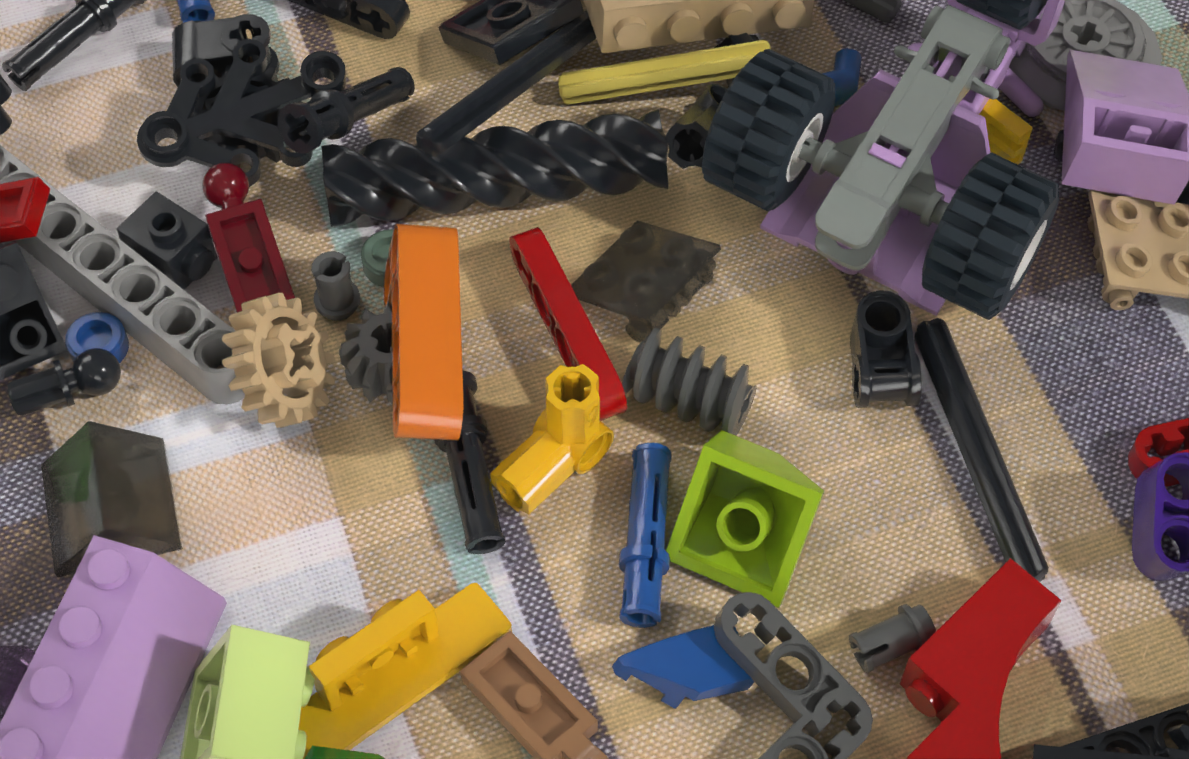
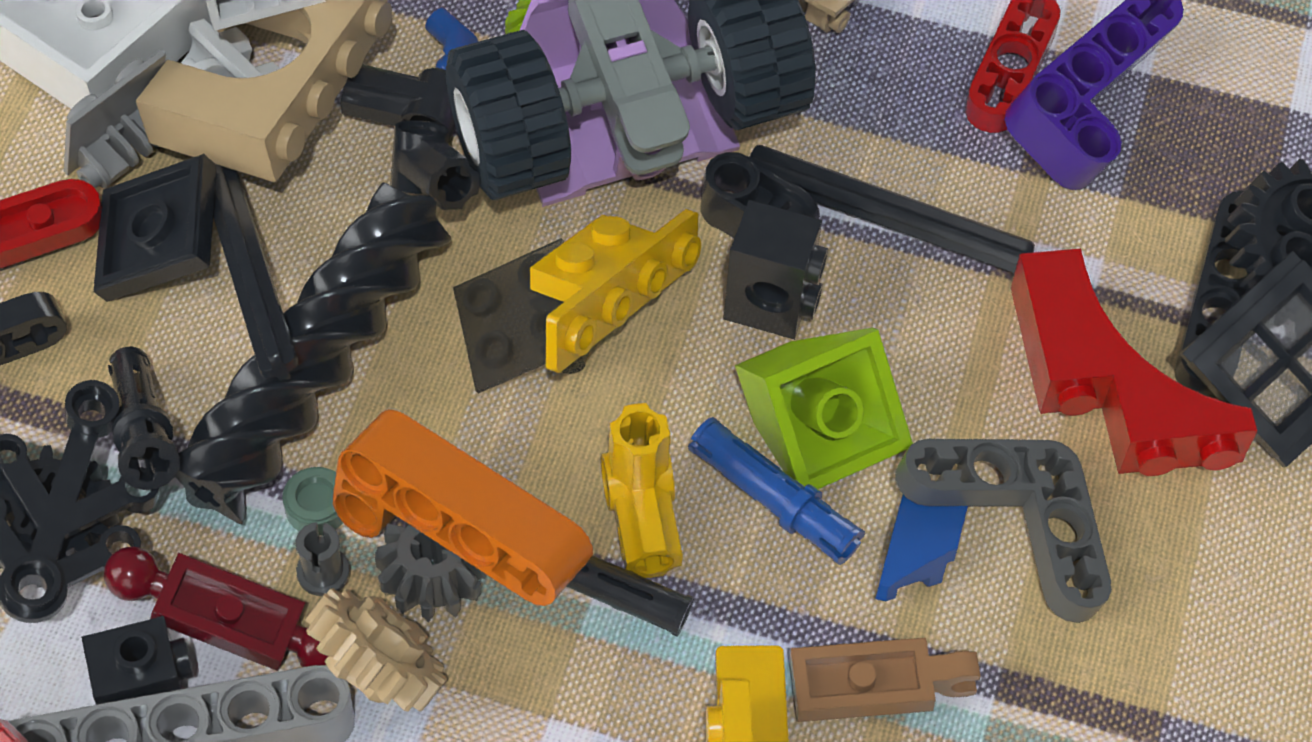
camera: 55 degrees left, 0 degrees up
(565, 316) = (508, 403): red beam -> none
(657, 73) = (336, 153): light yellow axle -> none
(689, 384) = (665, 353): dark grey piece -> none
(707, 294) = (607, 277): none -> yellow bracket
(823, 394) = (774, 270): none -> black brick
(892, 637) = (1010, 370): dark grey pin -> none

